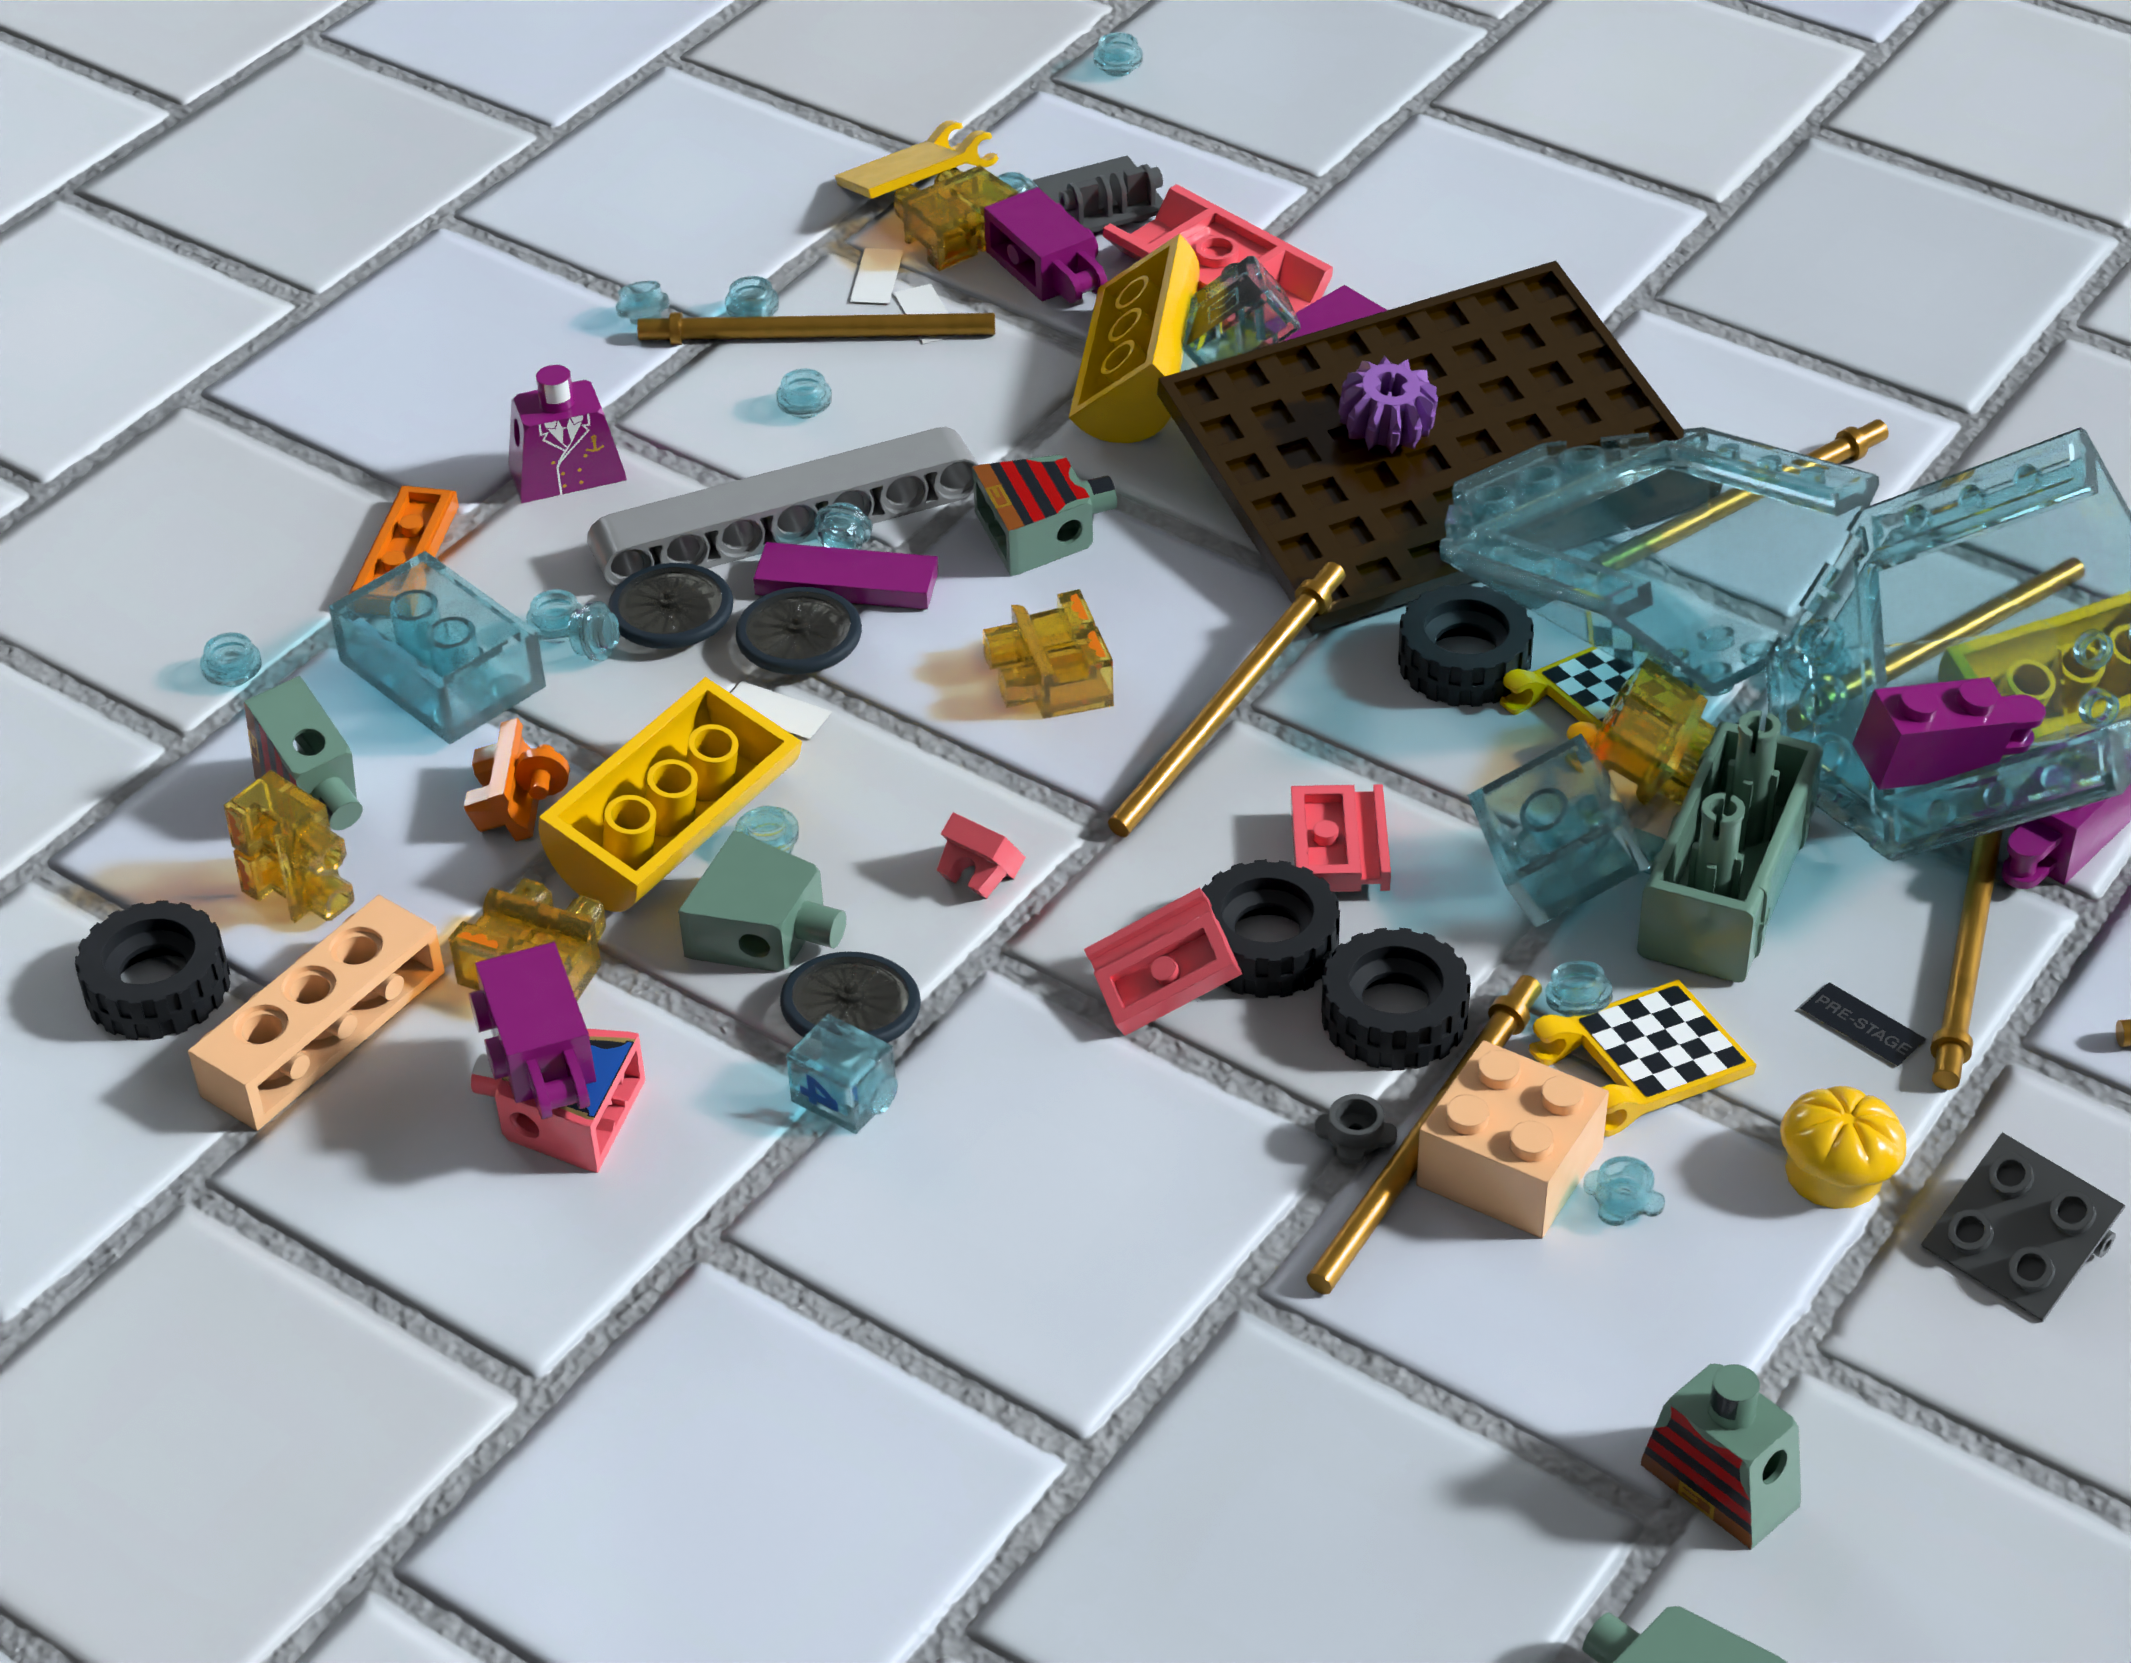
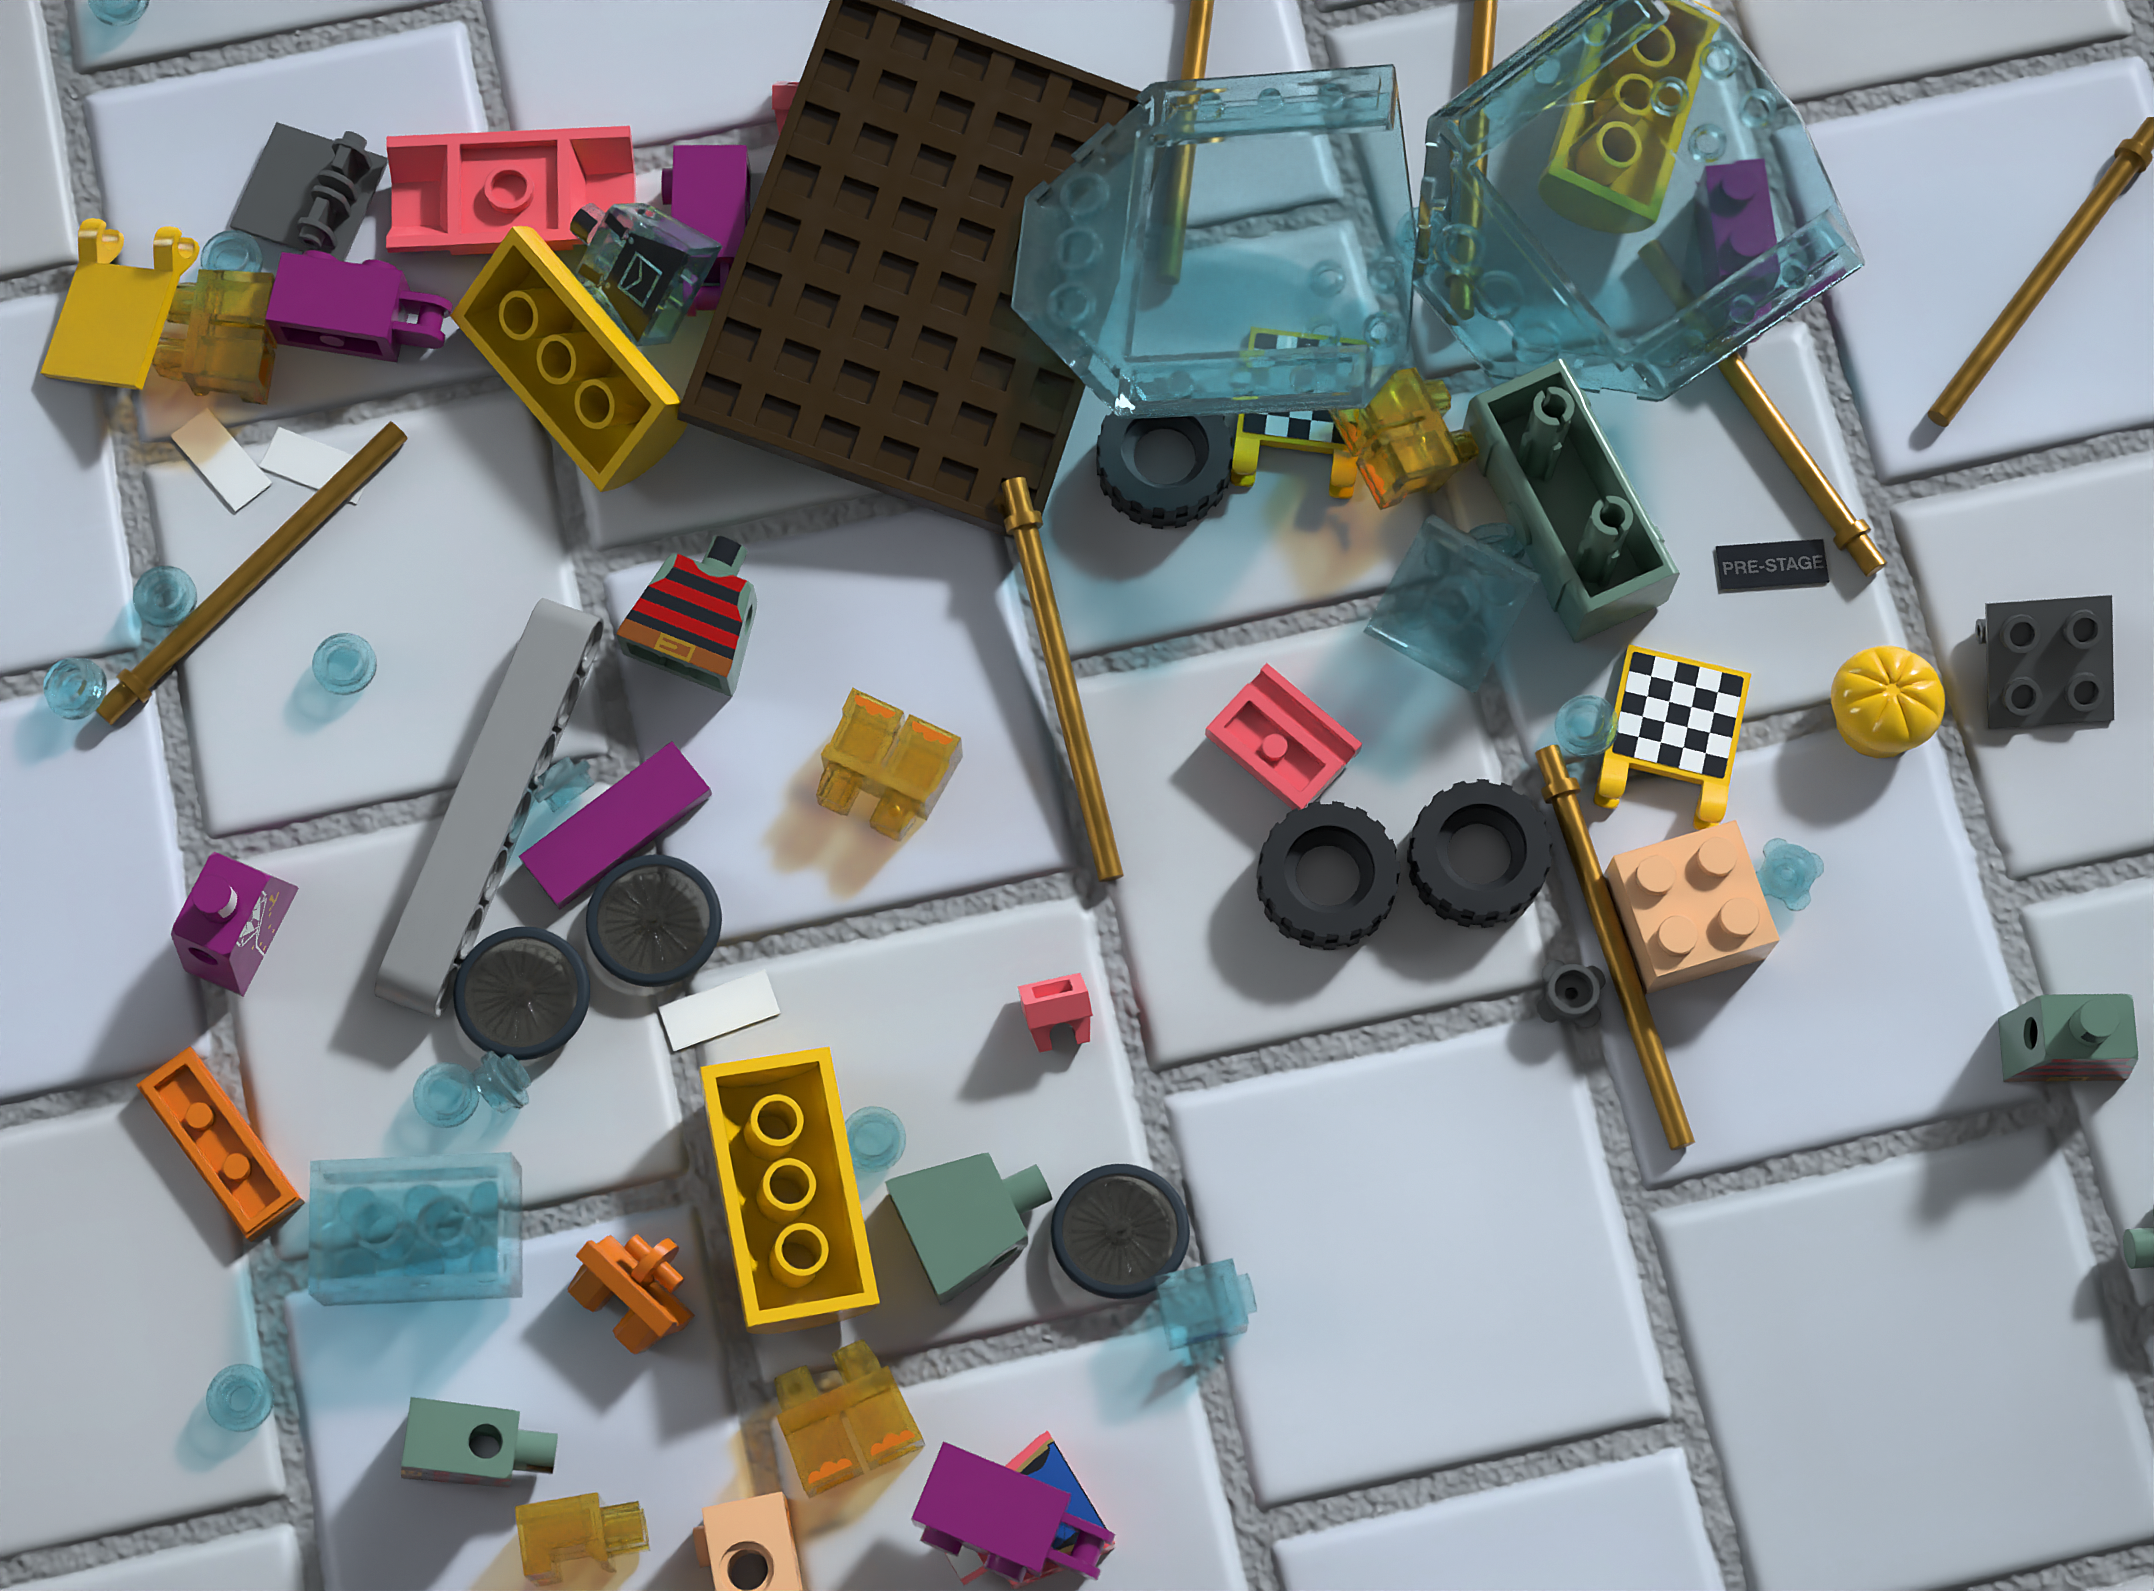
camera: 50 degrees left, 30 degrees up
(1162, 961) = (1309, 987): coral plate -> none
(1388, 404) = (870, 282): medium lavender gear -> none
(1942, 730) = (1642, 272): magenta brick -> none

